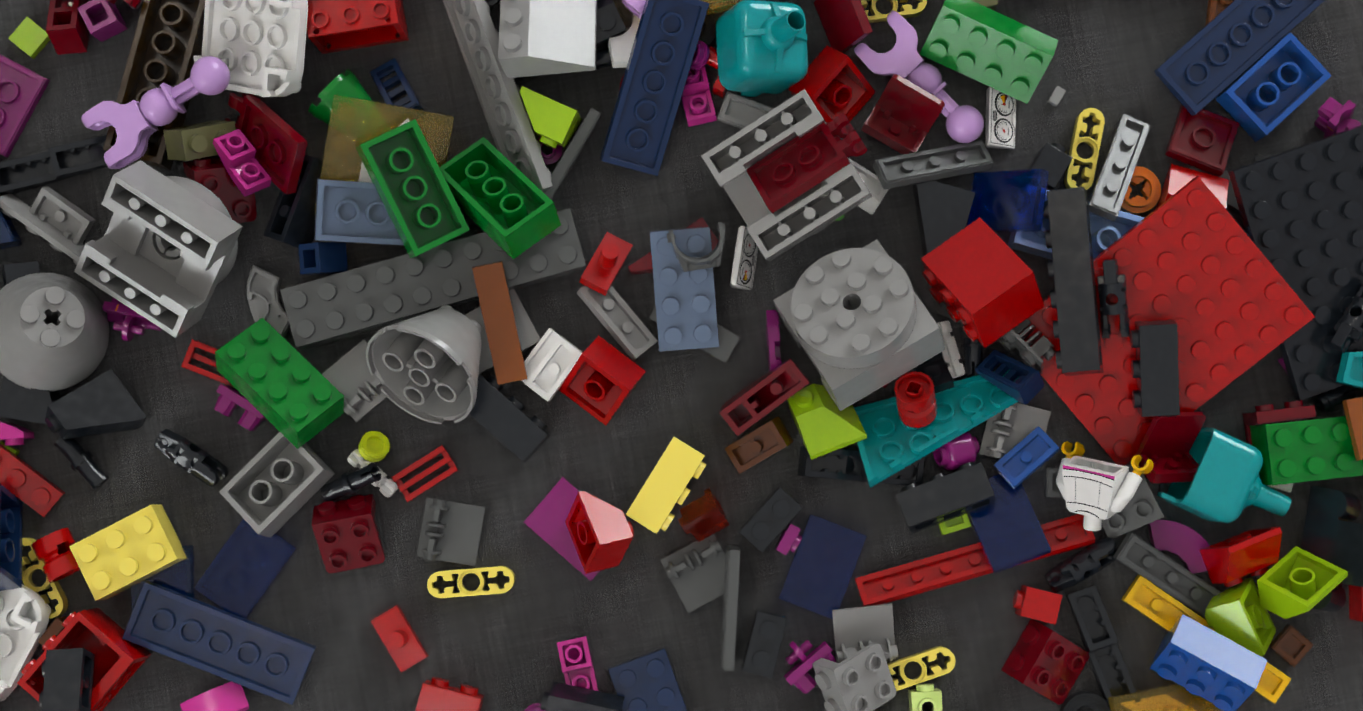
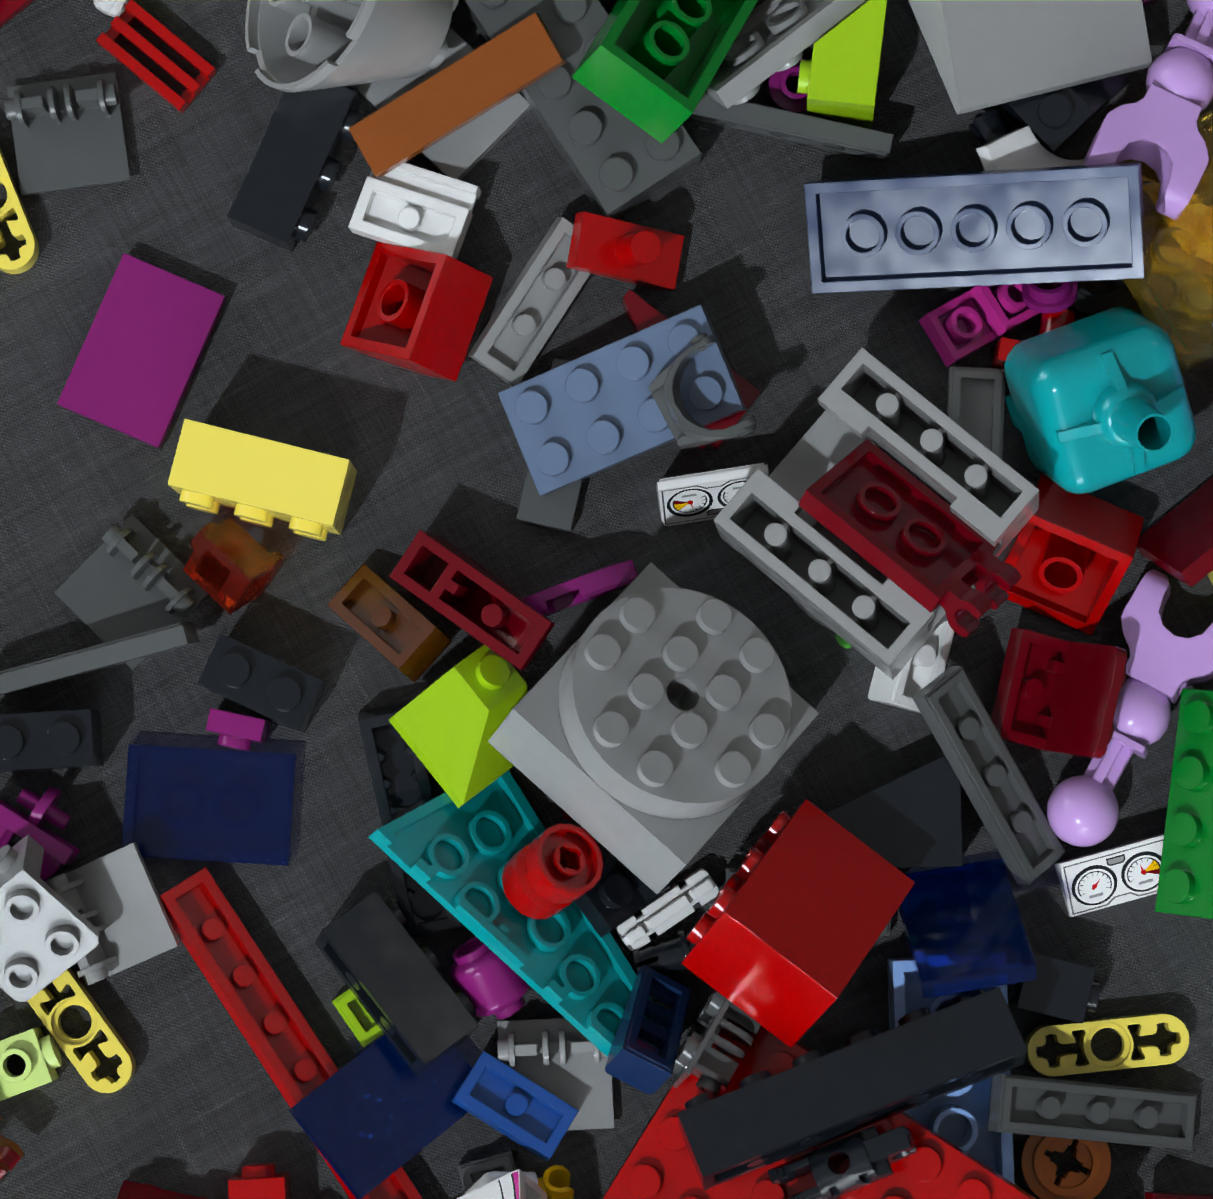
camera: 70 degrees right, 0 degrees up
(598, 532) = (140, 385): red slope -> none
(1056, 96) = (1190, 964): light grey piece -> none

